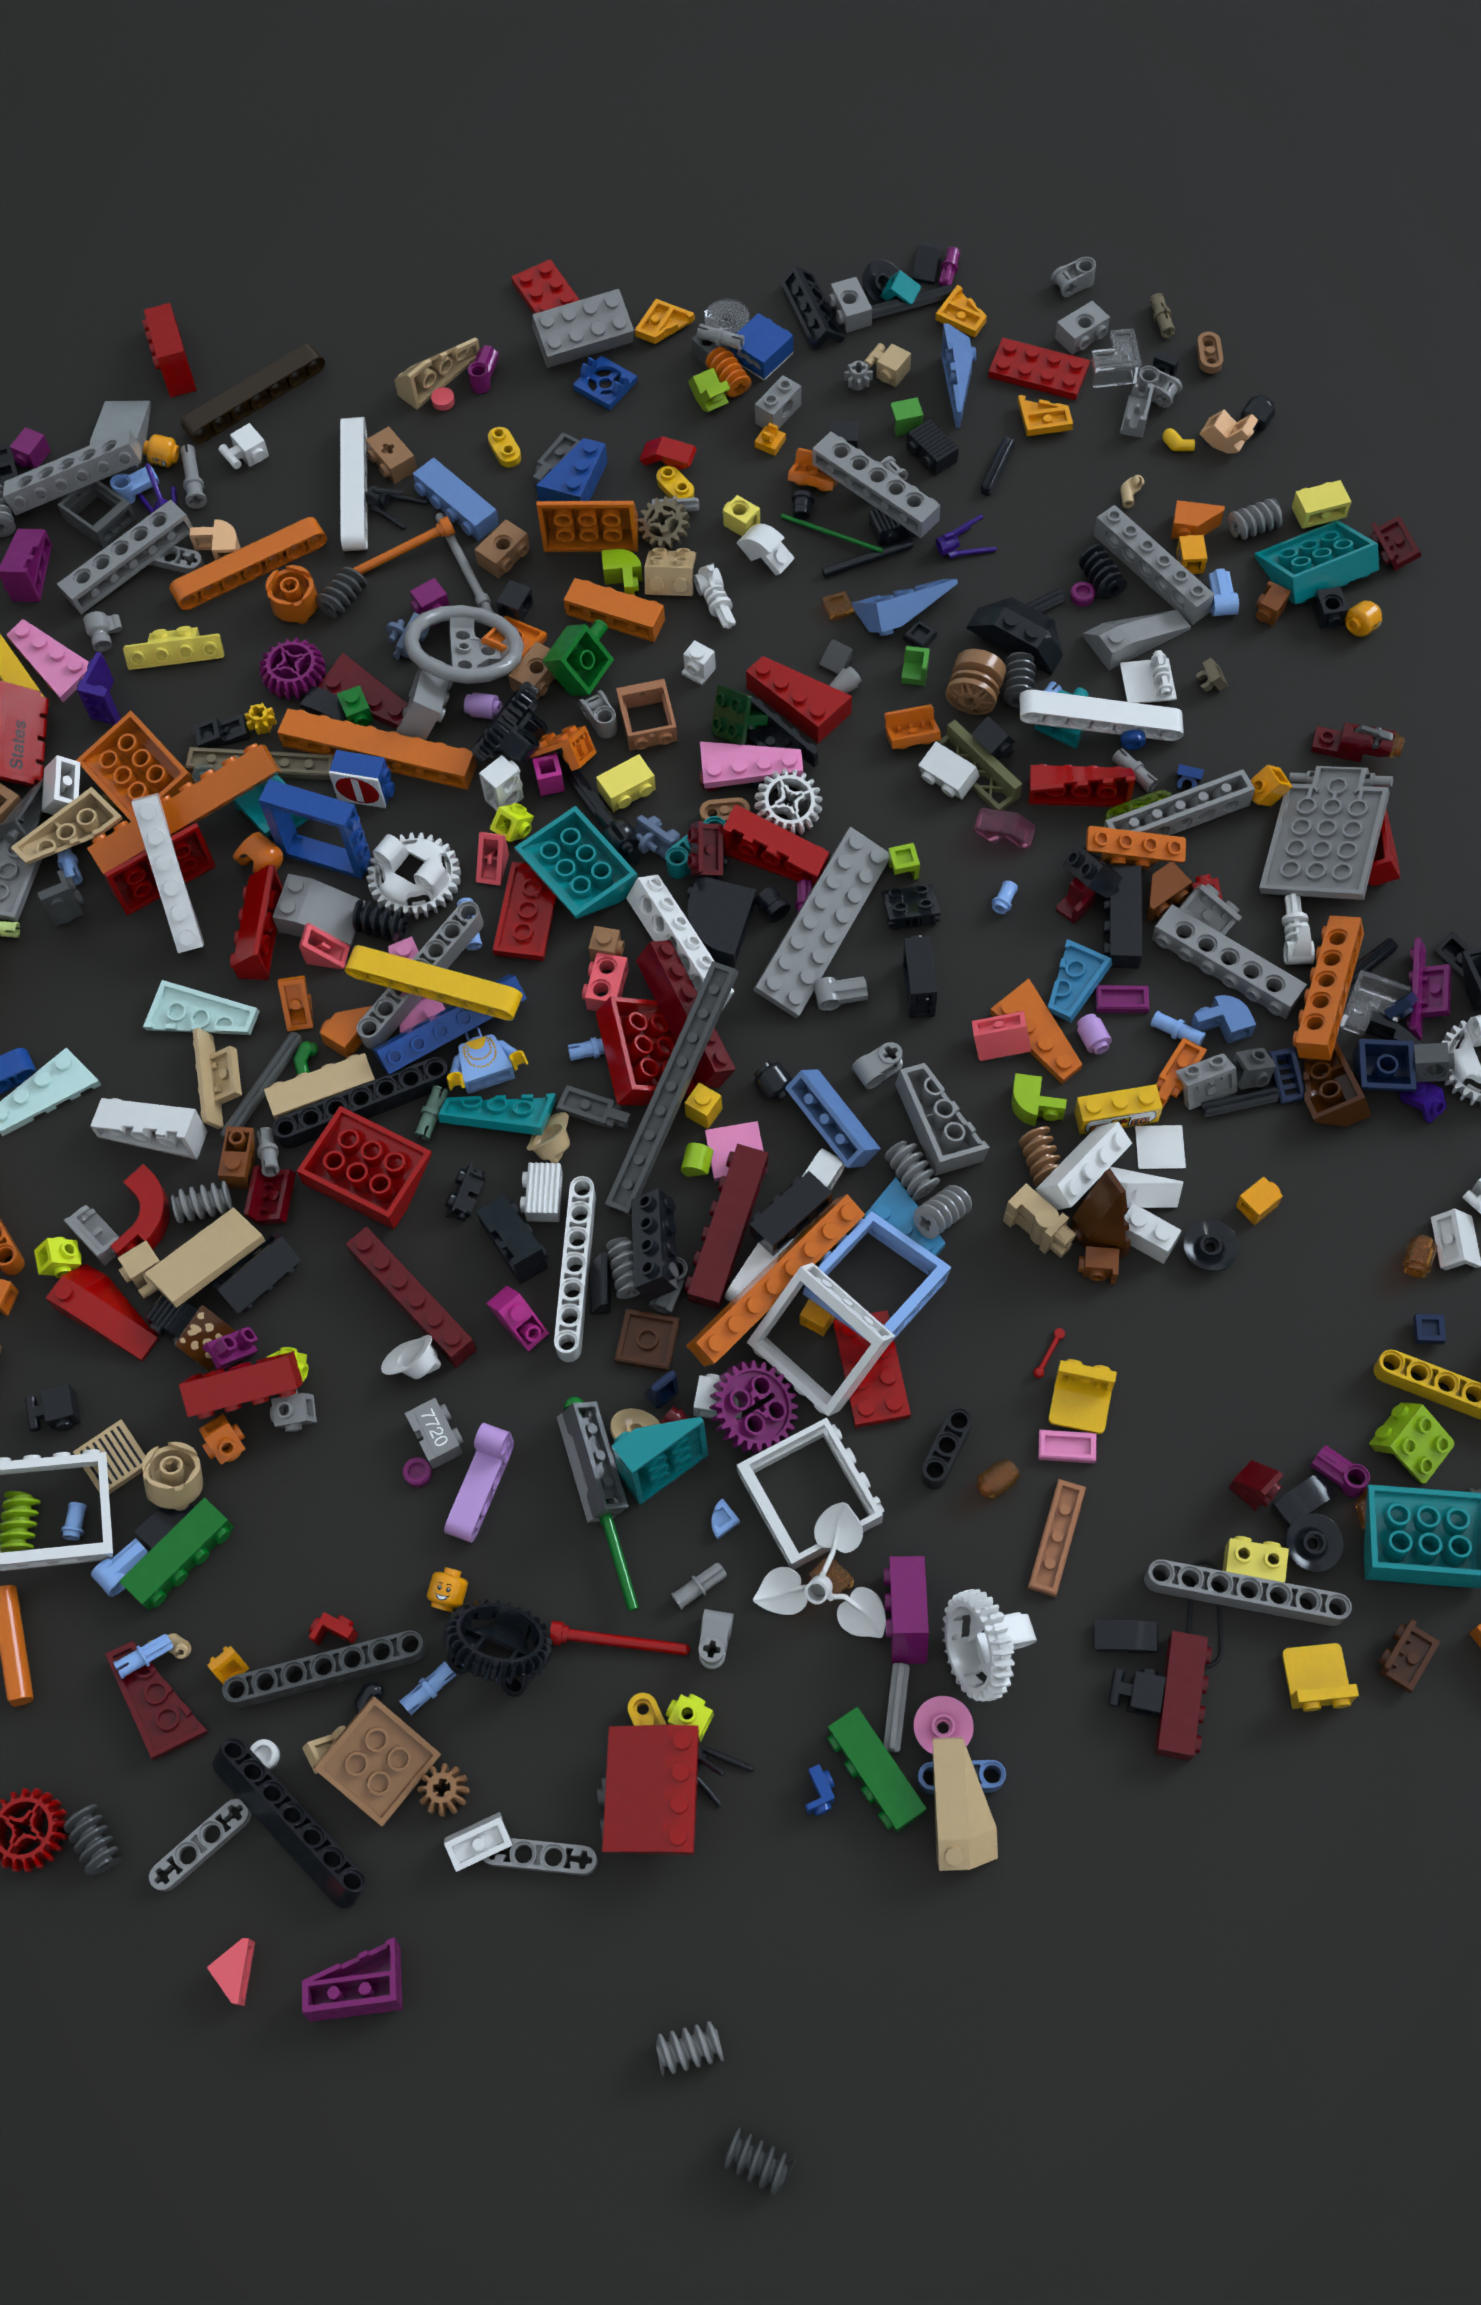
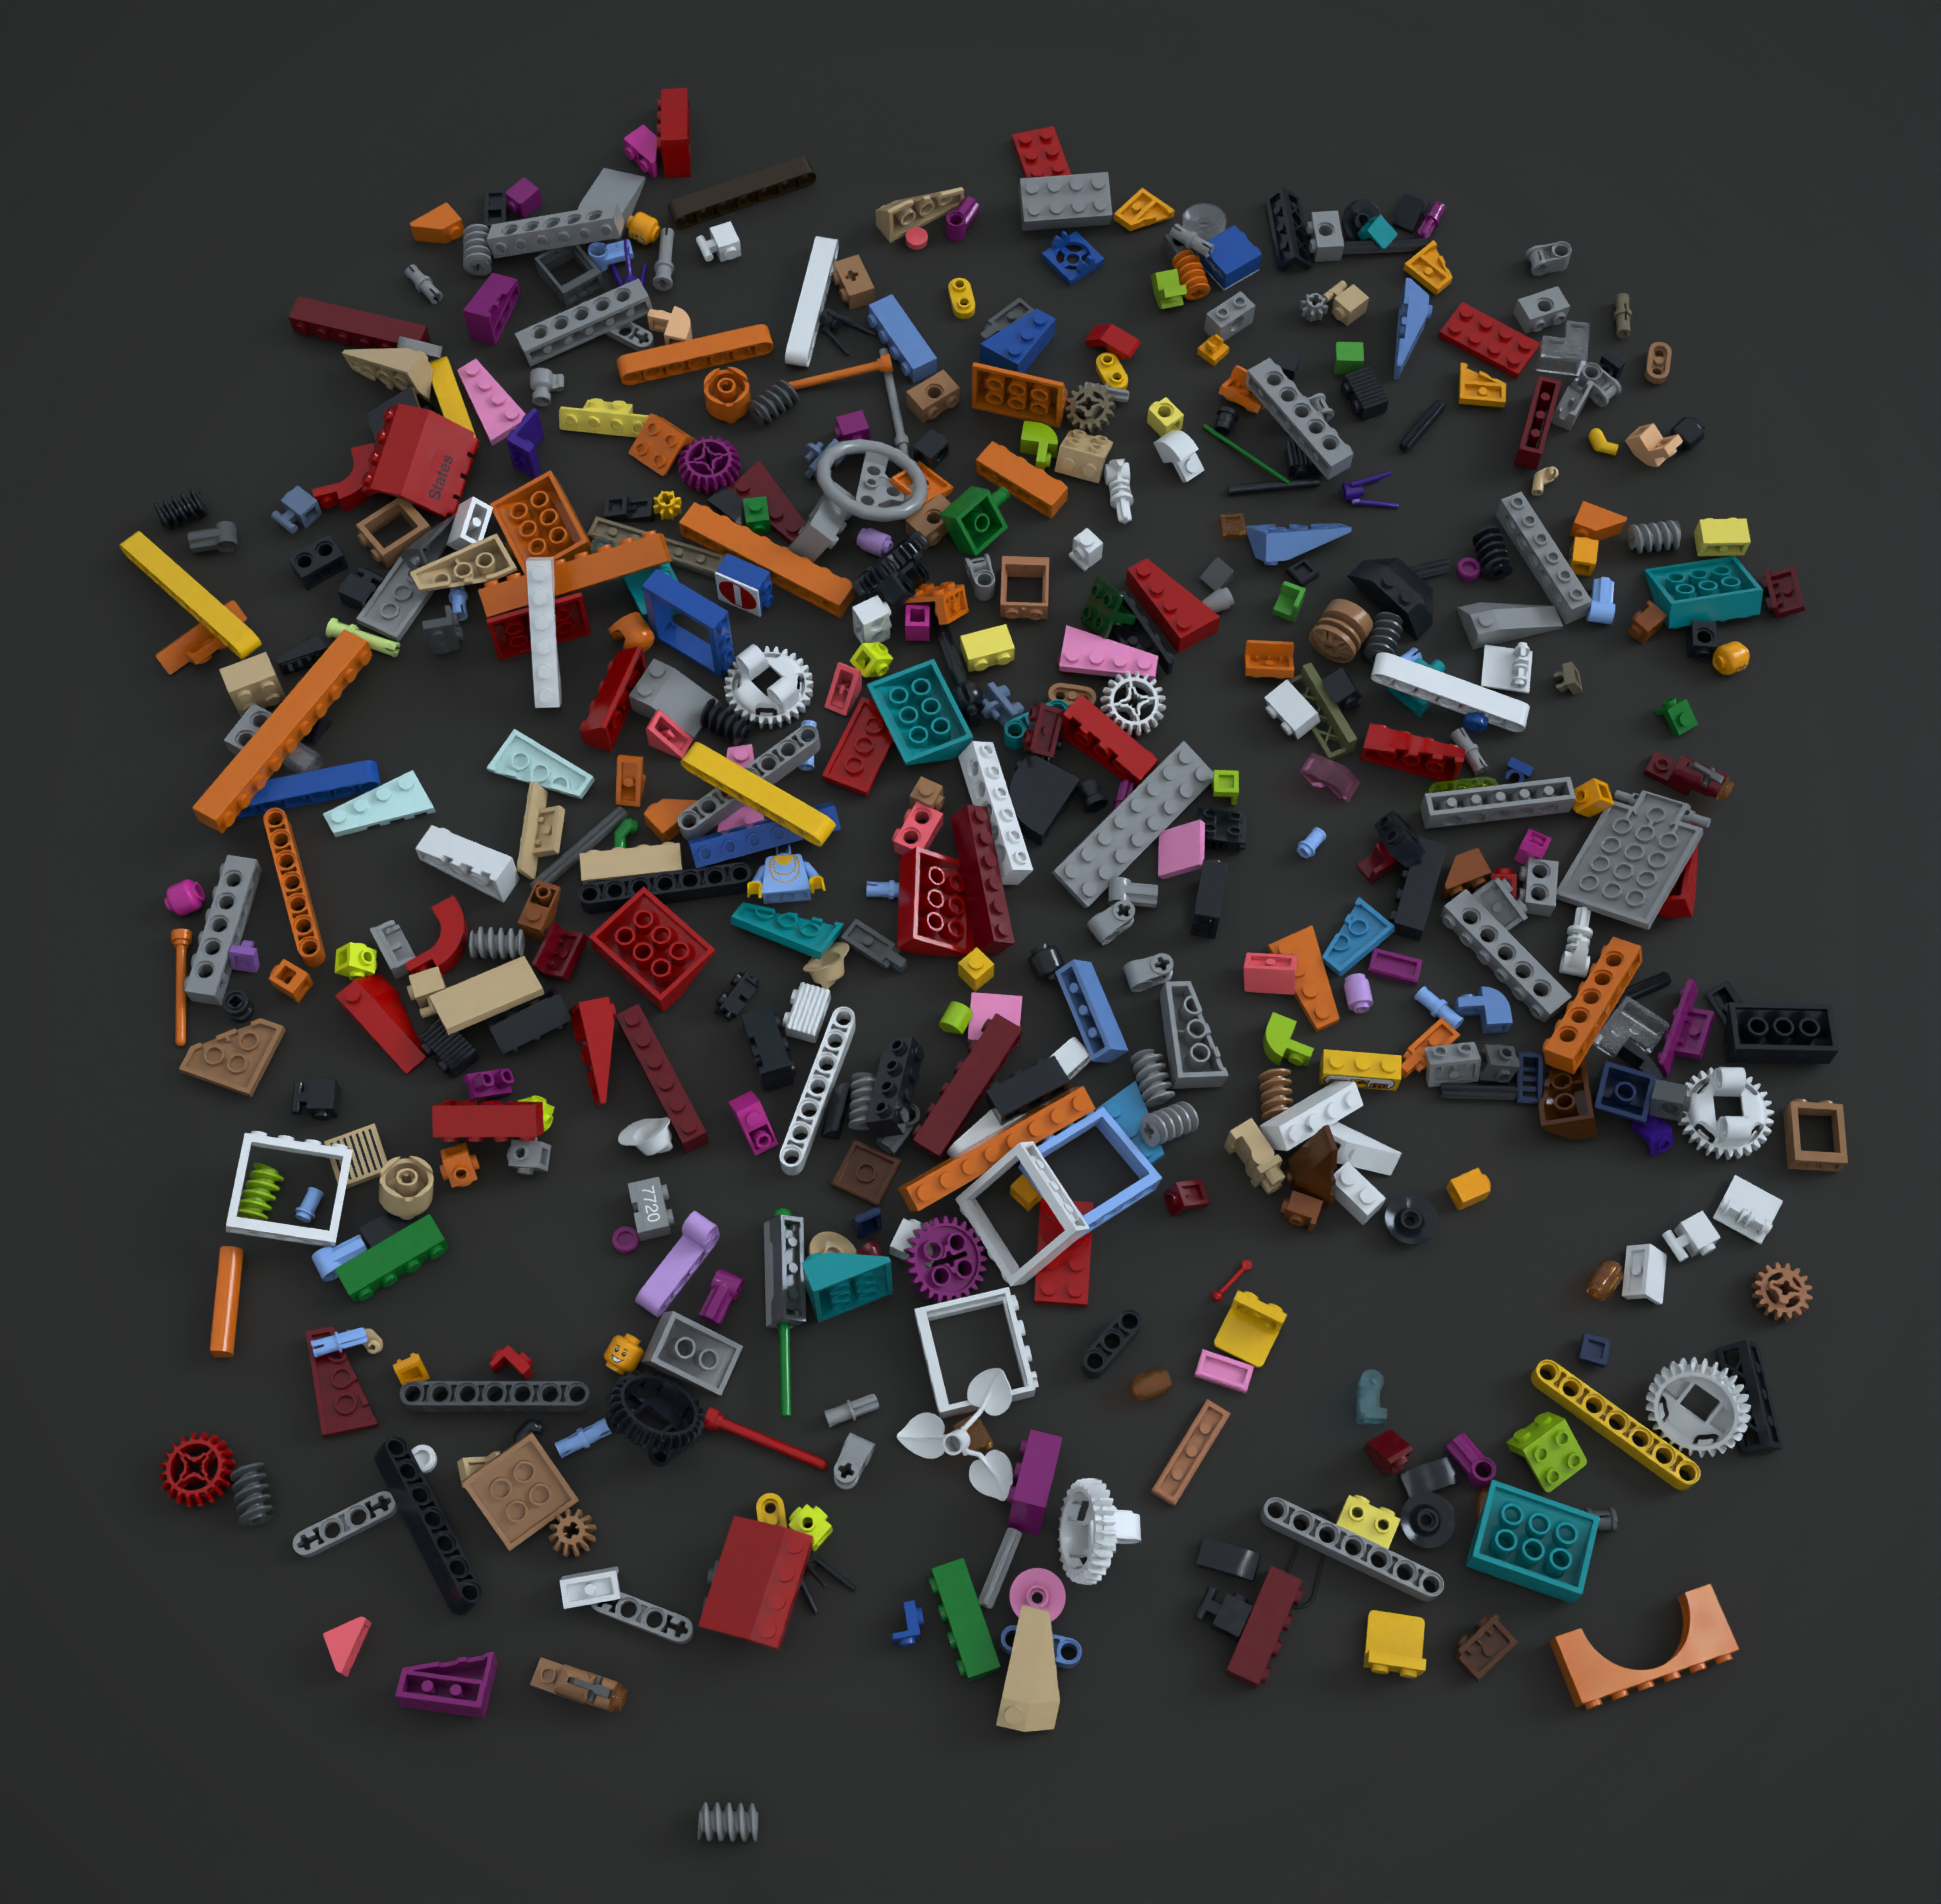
camera: 10 degrees right, 0 degrees up
(140, 372) = (642, 148): none -> dark pink slope
(202, 1328) = (465, 1061): reddish brown sticker -> none
(235, 660) = (659, 444): none -> orange bracket
(267, 1152) = (568, 912): light grey pin -> none
(327, 1263) = (594, 1029): none -> red wedge
(430, 1113) = (725, 912): sand green pin -> none
(493, 1948) = (579, 1685): none -> medium nougat plate
(517, 1570) = (692, 1353): none -> light grey slope
(533, 1498) = (723, 1291): none -> magenta piece
(672, 1087) = (950, 945): dark grey plate -> none
(723, 1519) = (890, 1355): light blue tile -> none
(825, 1027) = (1109, 924): none -> light grey piece
(877, 935) = (1181, 849): none -> bright pink tile
(979, 1280) = (1186, 1196): none -> dark red bracket
(1110, 436) = (1537, 423): none -> dark red brick
(1134, 847) = (1446, 826): orange bracket -> none
(1160, 1147) = (1391, 1115): white sticker -> none
(1221, 1436) = (1369, 1399): none -> clear light blue leg
(1224, 850) = (1533, 846): none -> dark pink slope
(1246, 885) = (1543, 887): none -> light grey brick
(1328, 685) = (1677, 715): none -> green bracket
(1401, 1006) = (1655, 1040): dark blue plate -> none

